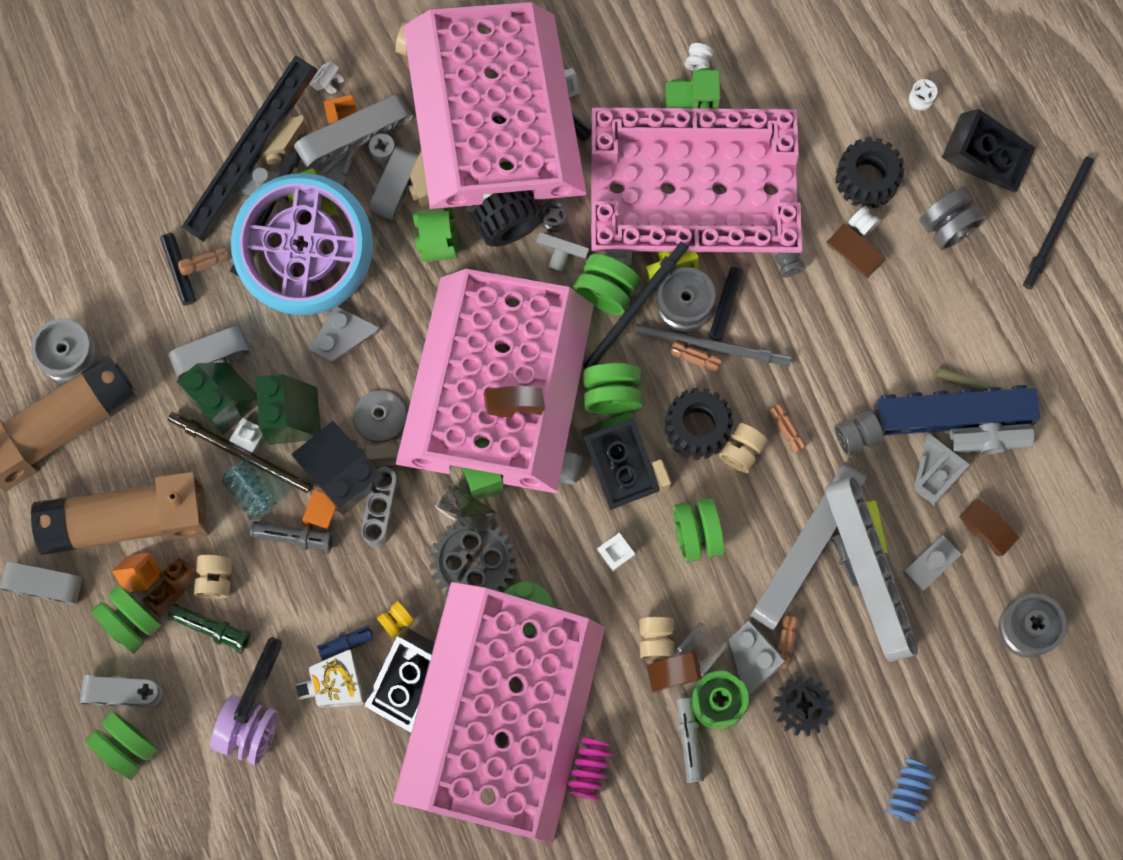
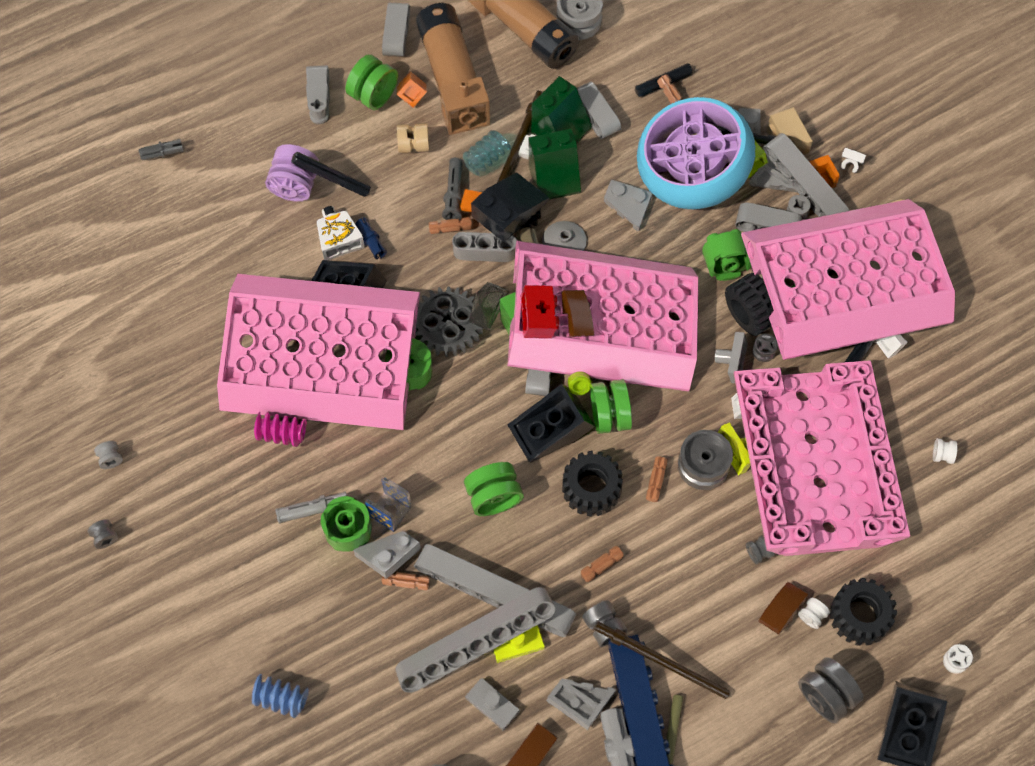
camera: 85 degrees right, 10 degrees down
(117, 749) = (274, 94): bright green wheel -> none
(175, 582) = (408, 114): reddish brown slope -> none
(220, 634) = (371, 152): dark green pin -> none
(249, 148) = (776, 108): black tile -> none
(341, 545) = (450, 225): none -> nougat axle
(400, 615) = (393, 270): yellow wheel -> none
(520, 452) = (538, 311): none -> red brick
(580, 418) = (579, 383): none -> lime tile
(607, 284) = (706, 391): bright green wheel -> none
(616, 552) = (467, 428): white tile -> none
(657, 638) = (397, 468): tan wheel -> none
(661, 475) = (541, 459): tan tile -> none
(668, 266) = (727, 431): black bar -> none
(674, 671) = (368, 485): reddish brown slope -> none
(699, 93) = (907, 447): bright green brick -> none
(726, 303) = (711, 500): black axle -> none
(744, 445) = (575, 523): tan wheel -> none
(763, 356) = (666, 534): dark grey bar -> none
(801, 693) = (338, 598): black gear -> none
(886, 415) = (619, 638): none -> dark brown bar

